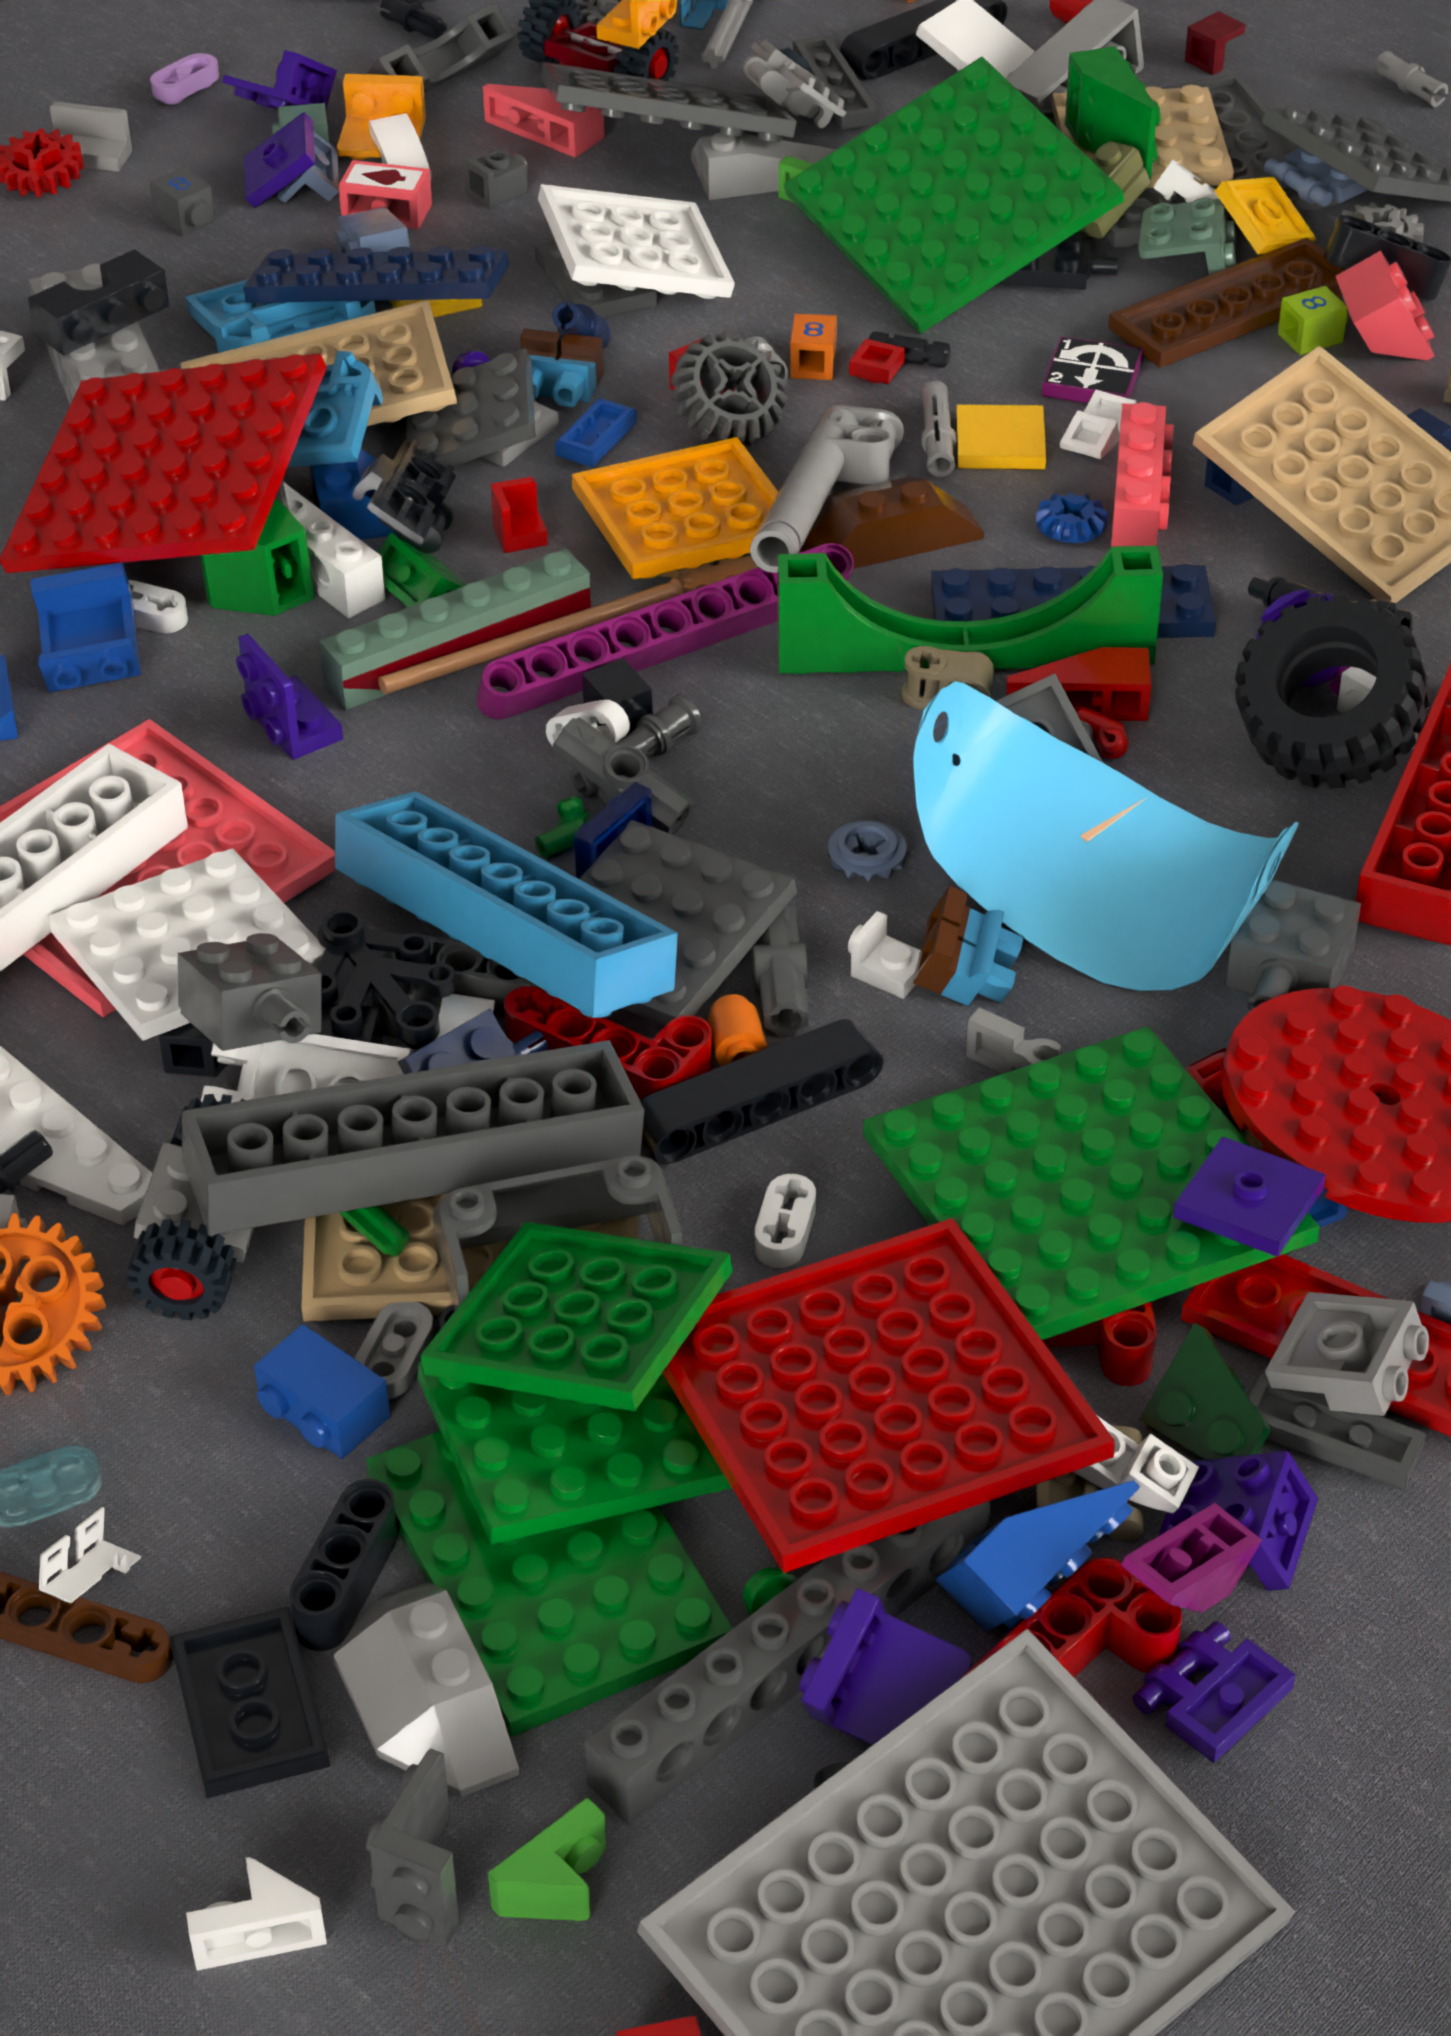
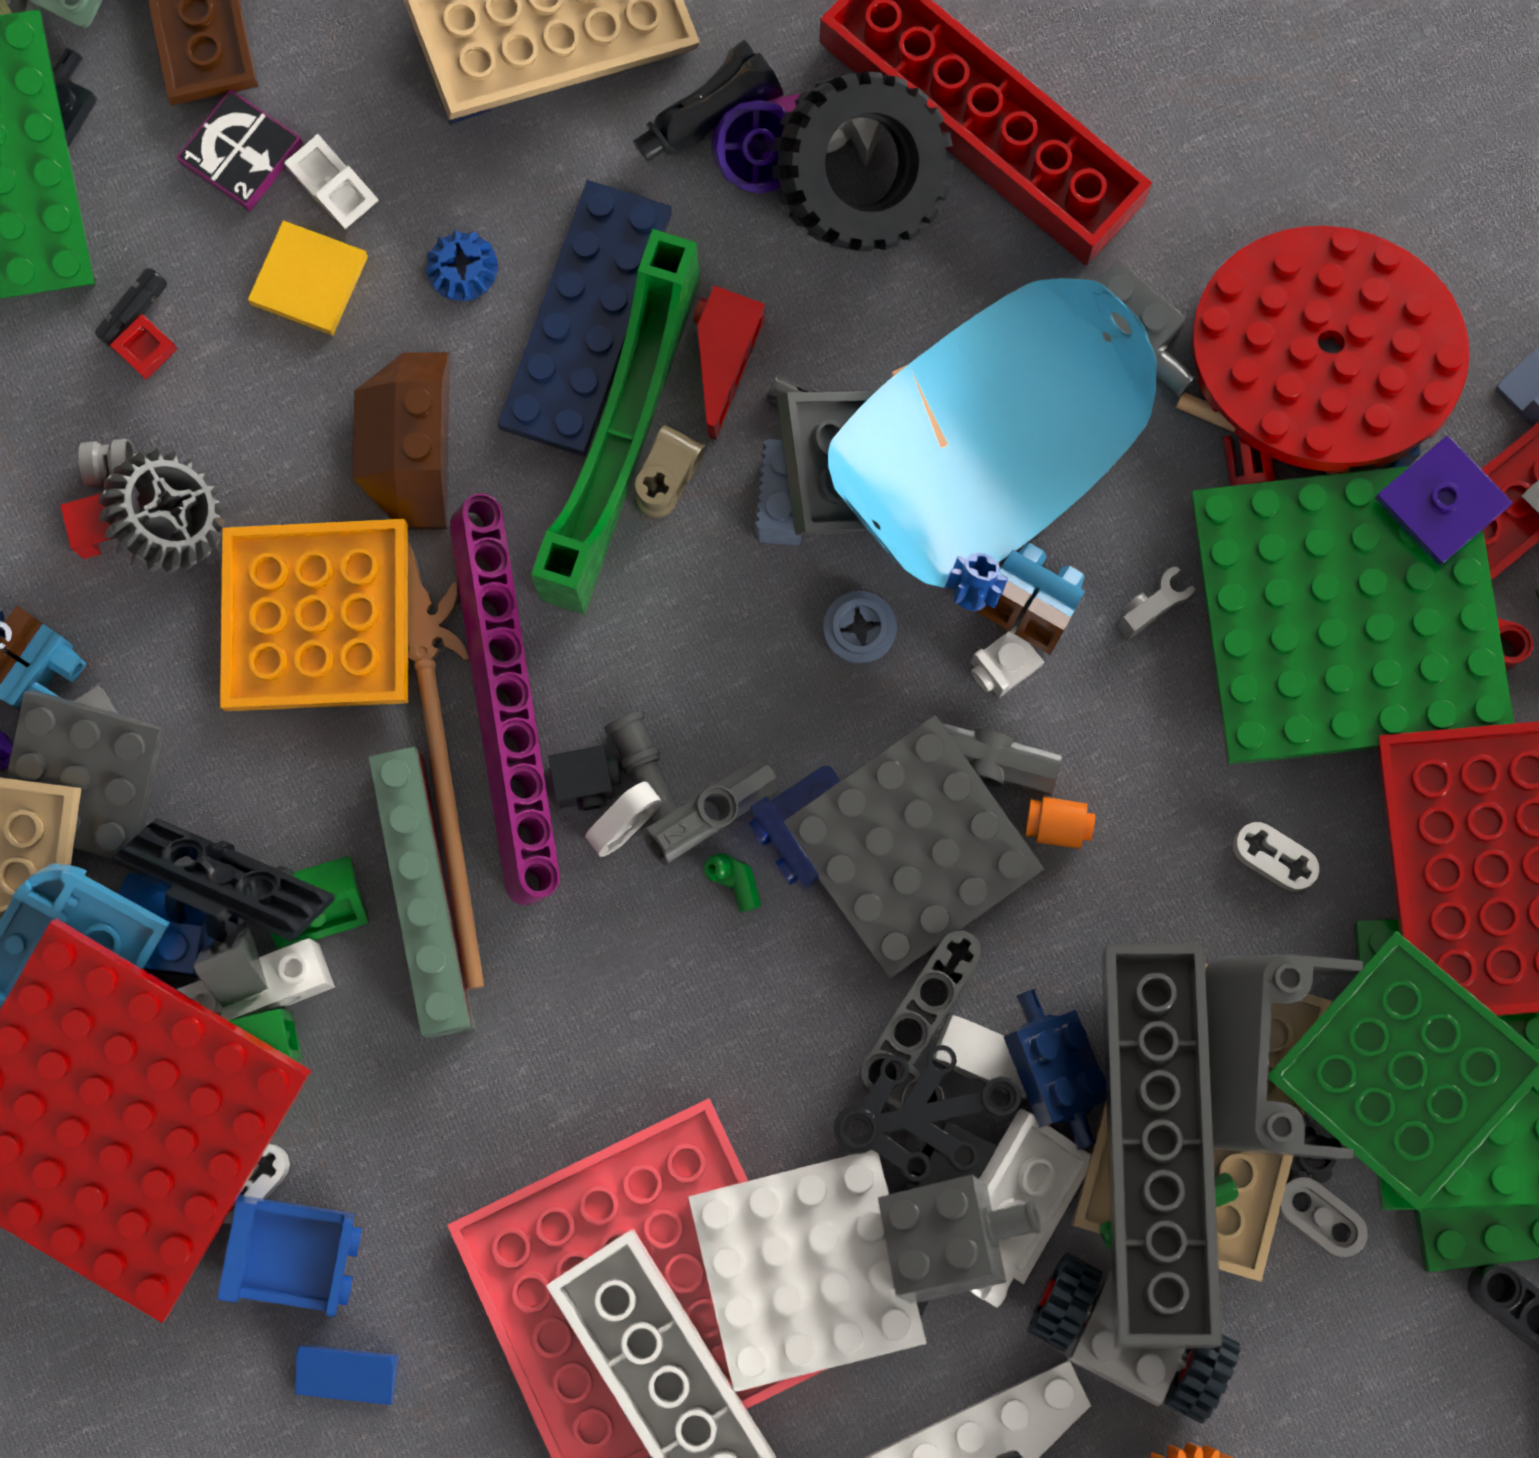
camera: 70 degrees left, 35 degrees up
(283, 704) = (475, 1083): dark purple bracket -> none
(321, 1391) = (1355, 1290): blue brick -> none
(331, 495) = (231, 968): none -> dark grey slope
(507, 903) = (878, 978): dark azure brick -> none
(517, 515) = (264, 780): red panel -> none
(596, 432) = (147, 659): blue plate -> none
(671, 1057) = (1036, 942): red beam -> none
(758, 1090) = (1132, 830): black beam -> none
(813, 346) = (96, 398): orange brick -> none
(841, 448) = (279, 433): light grey piece -> none
(936, 444) = (325, 346): light grey pin -> none
(944, 861) = (976, 581): none -> blue gear
(1107, 732) = (782, 361): red arm -> none
(1142, 475) = (443, 182): coral brick -> none

